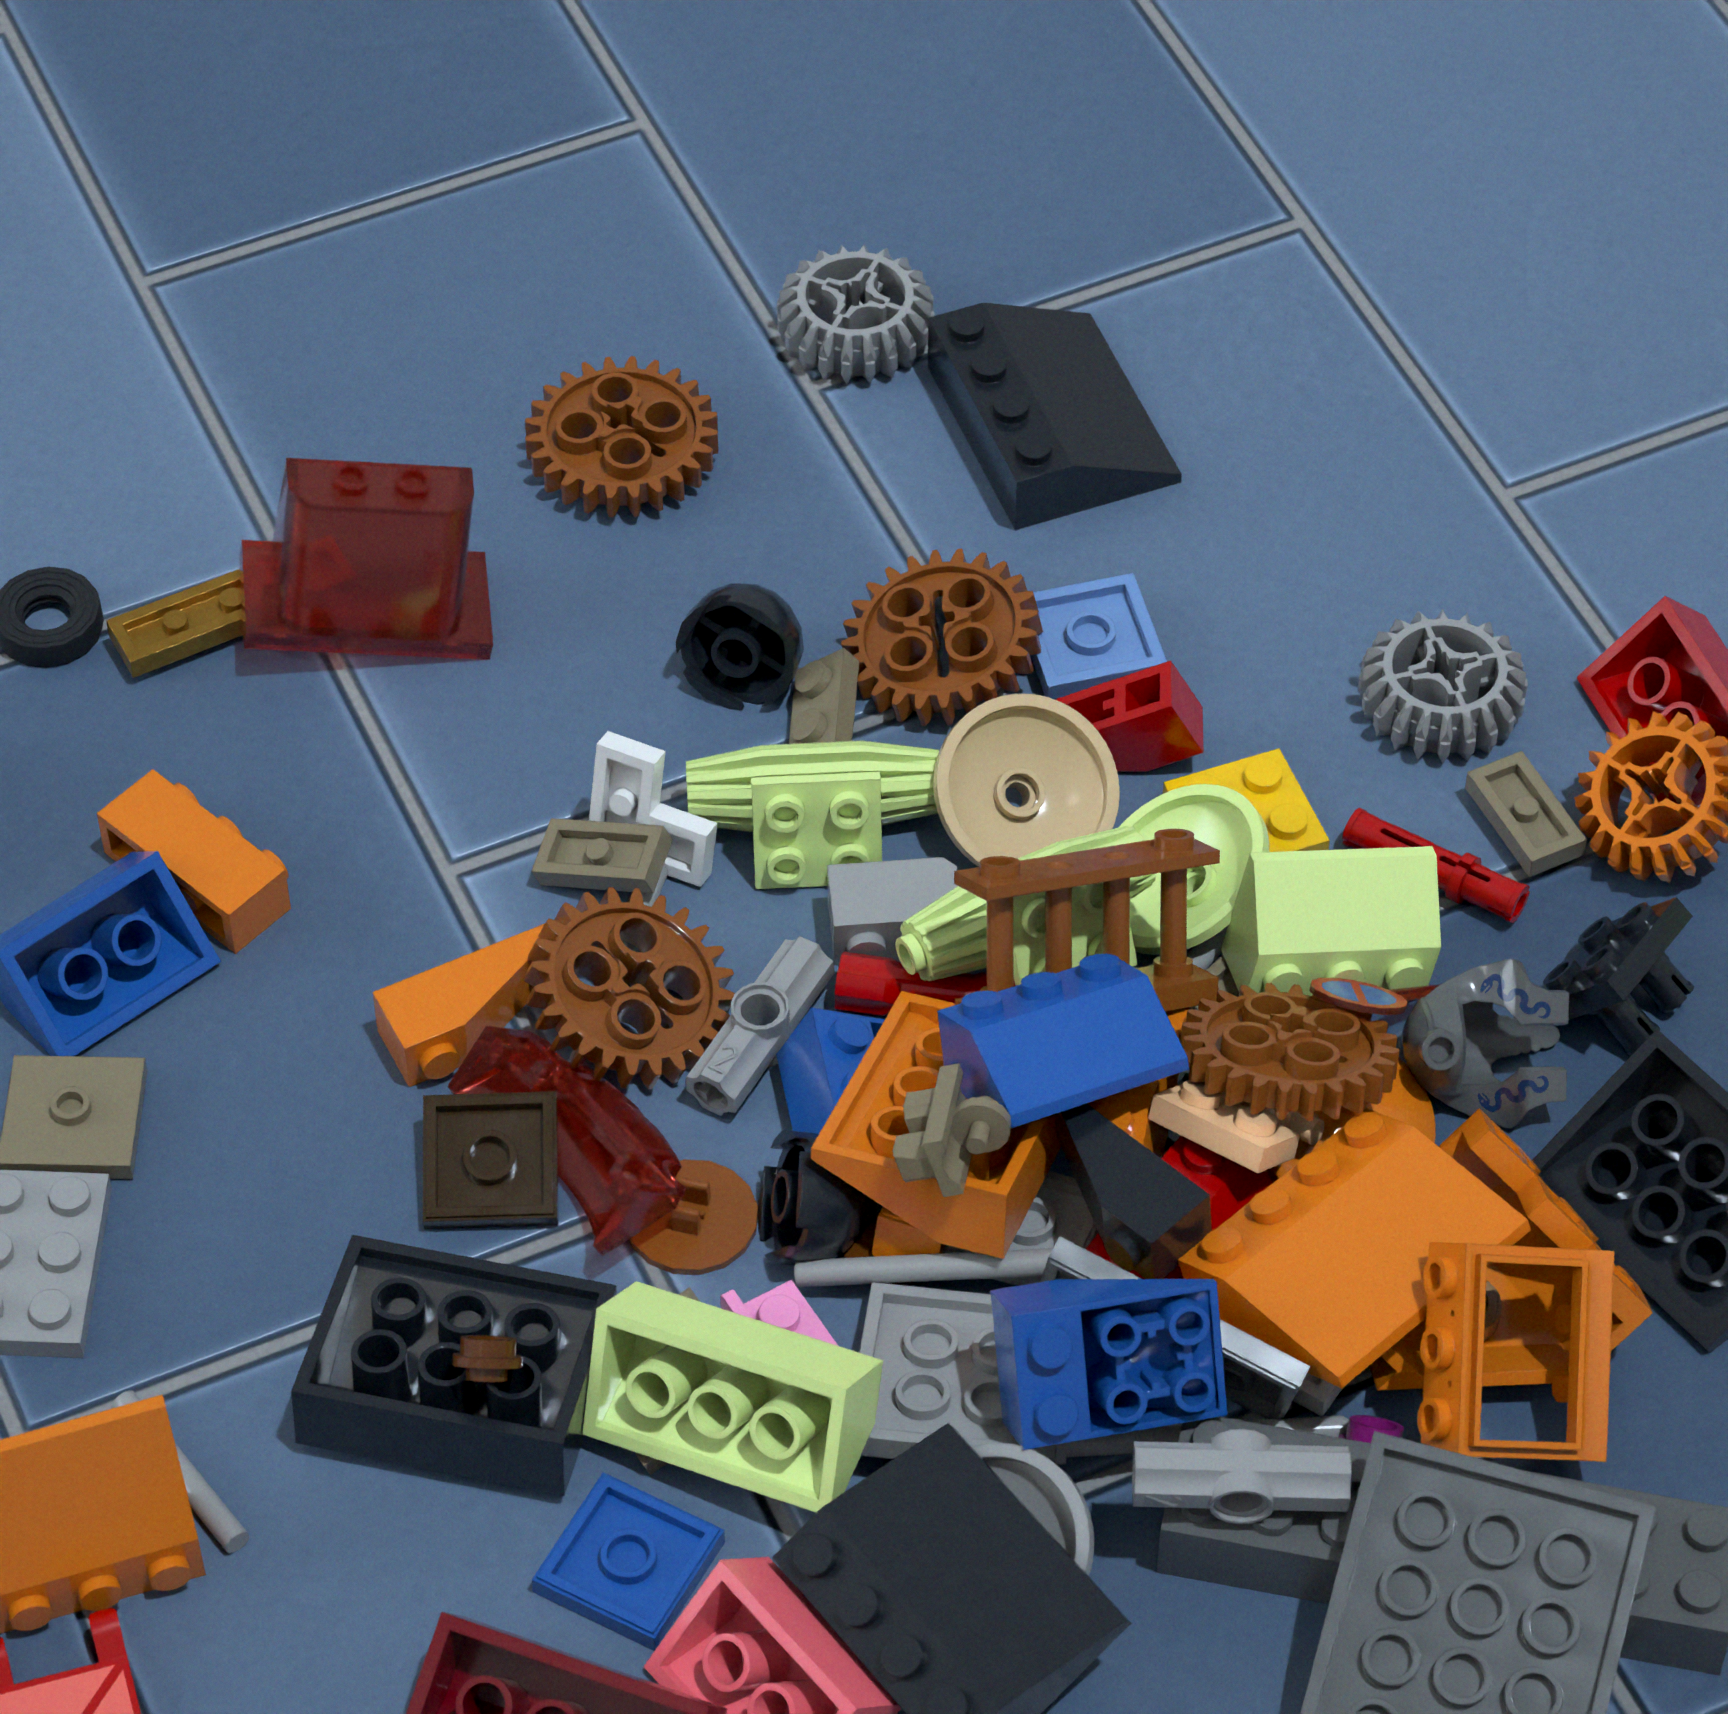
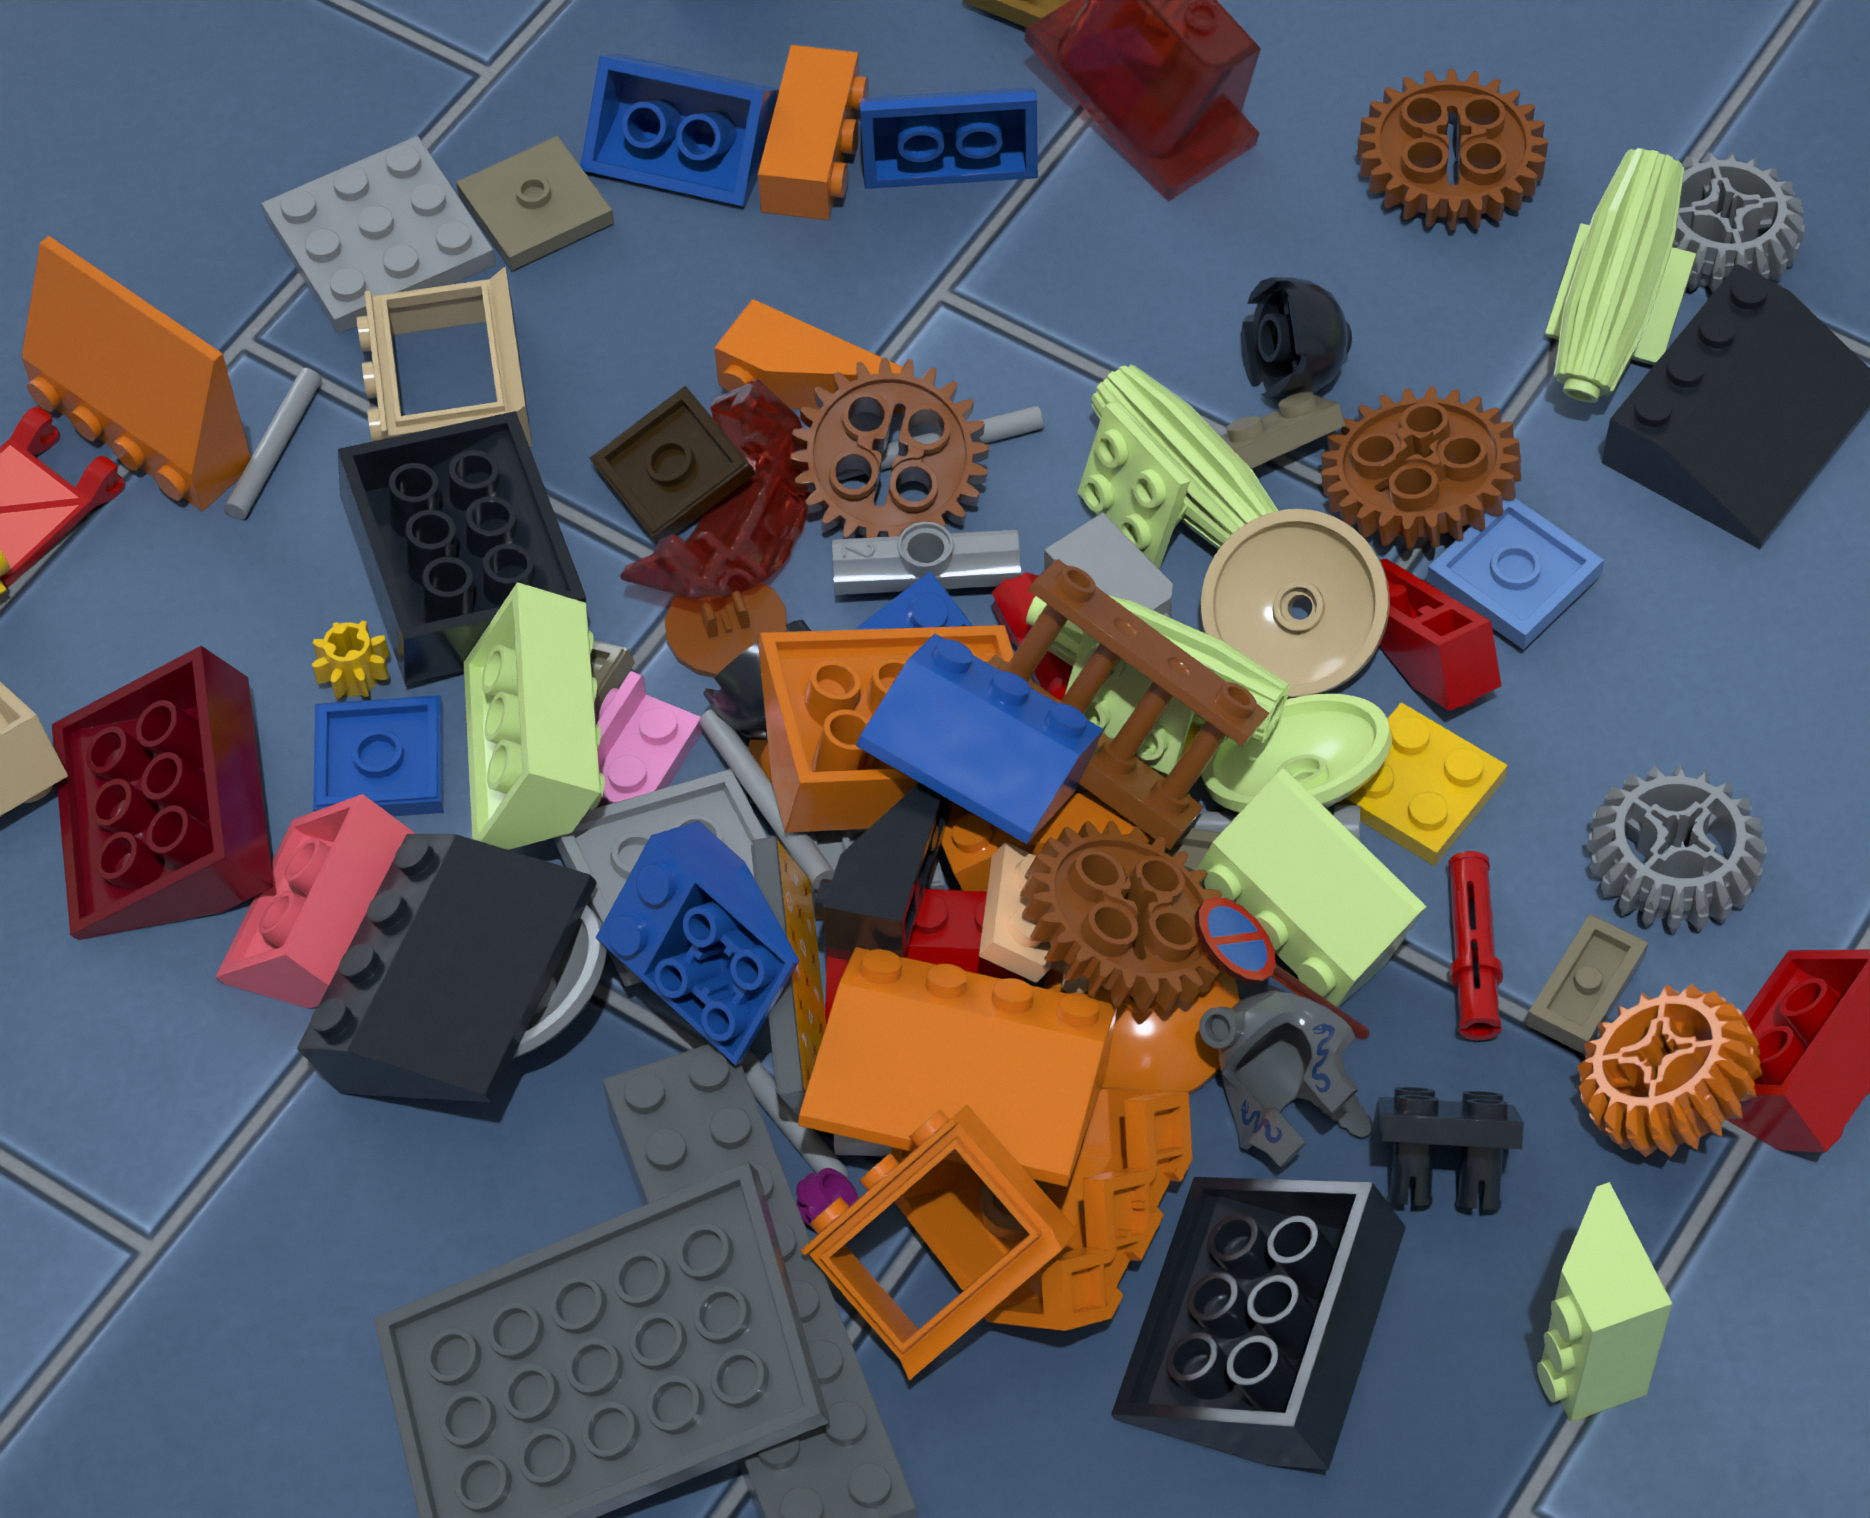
camera: 60 degrees right, 5 degrees up
(204, 1335) = (435, 309): none -> tan window
(300, 754) = (949, 137): none -> blue slope
(487, 1357) = (436, 544): reddish brown plate -> none
(509, 1521) = (350, 659): none -> yellow gear
(602, 855) = (1010, 370): dark tan plate -> none
(629, 791) = (1059, 370): white plate -> none
(880, 397) = (1622, 279): none -> yellowish green plate
(947, 1132) = (821, 706): dark tan hips -> none
(1241, 1476) = (661, 1095): light grey piece -> none

